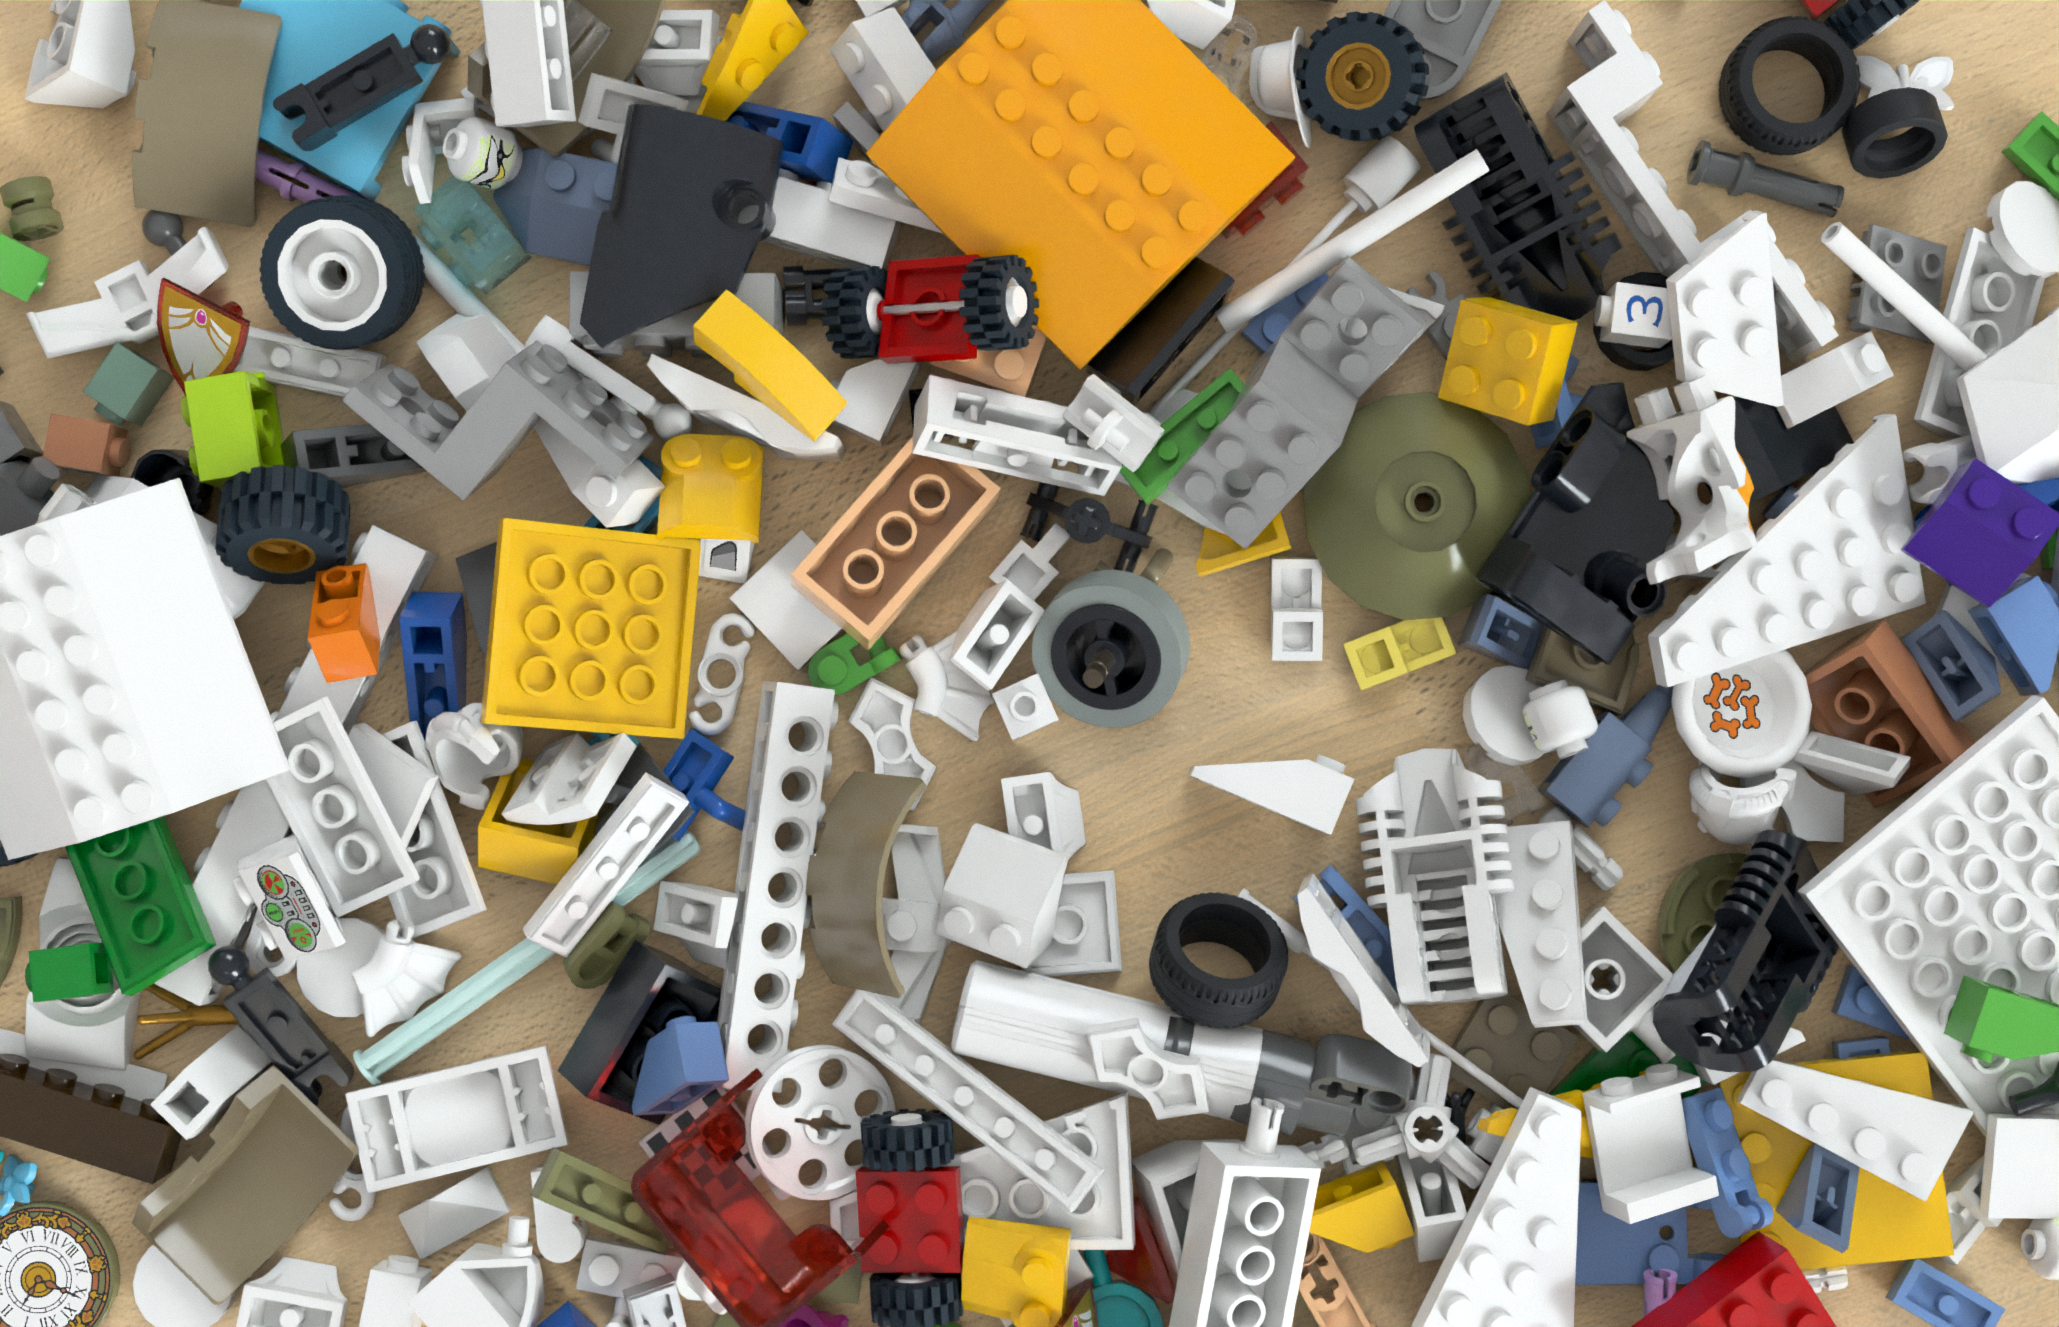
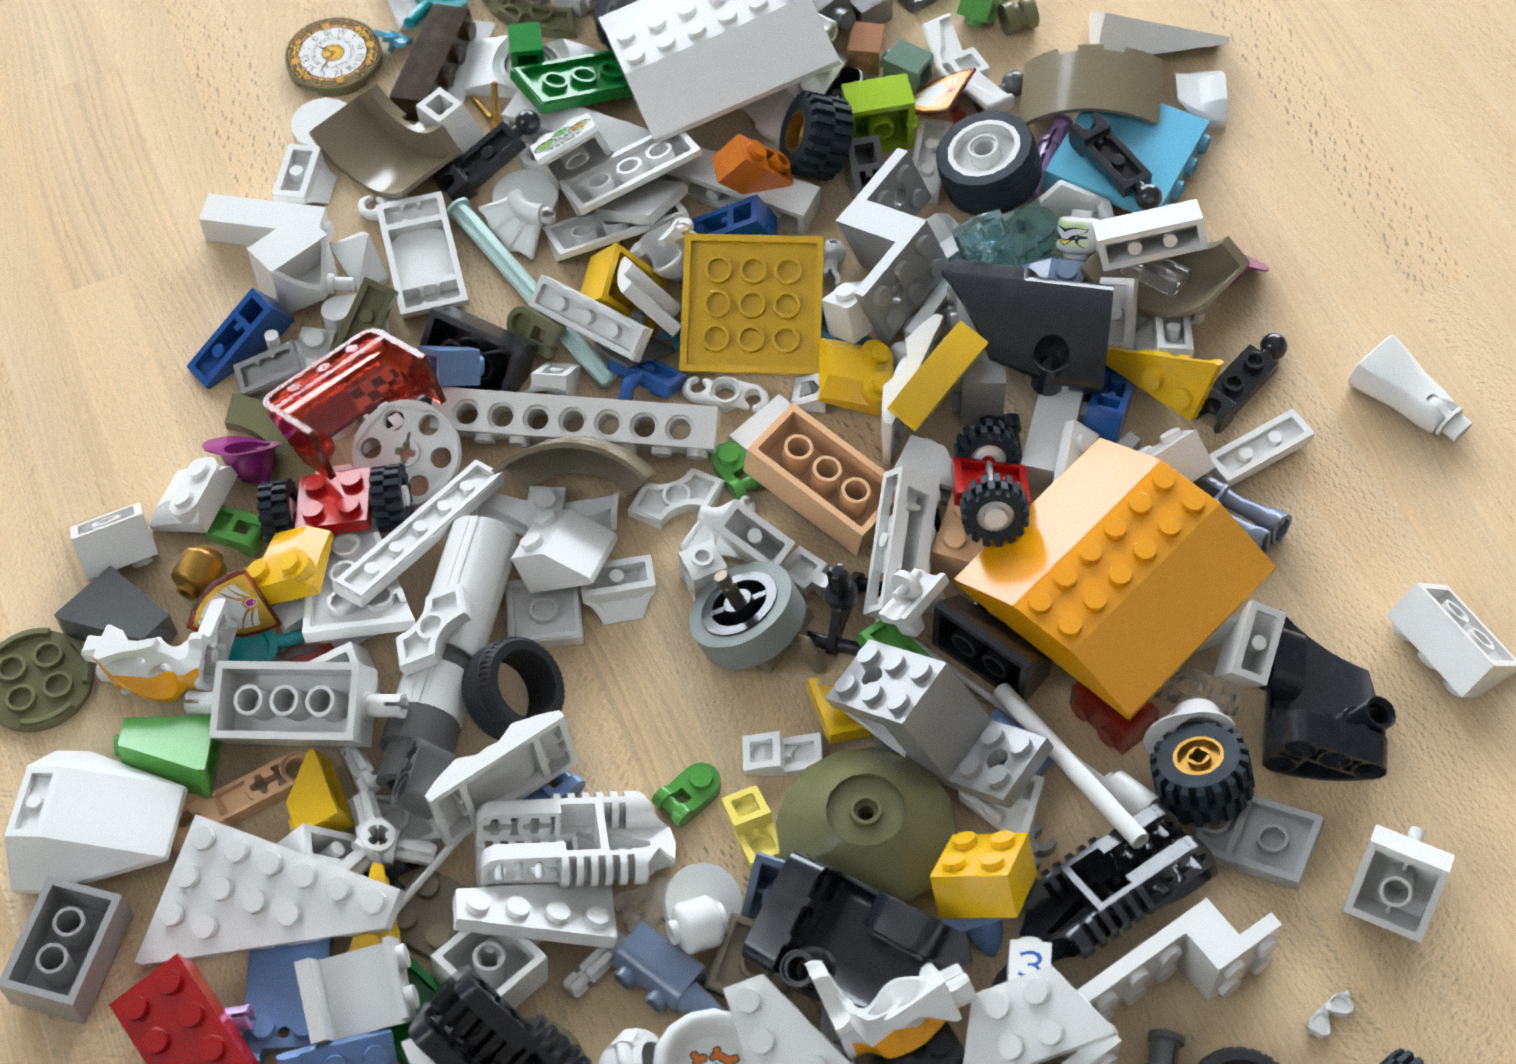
camera: 85 degrees right, 30 degrees down
(488, 513) = (833, 255): none -> white arm
(514, 285) = (986, 240): none -> clear light blue brick
(1292, 788) = (641, 752): white slope -> none
(1334, 718) = (698, 784): none -> bright green plate

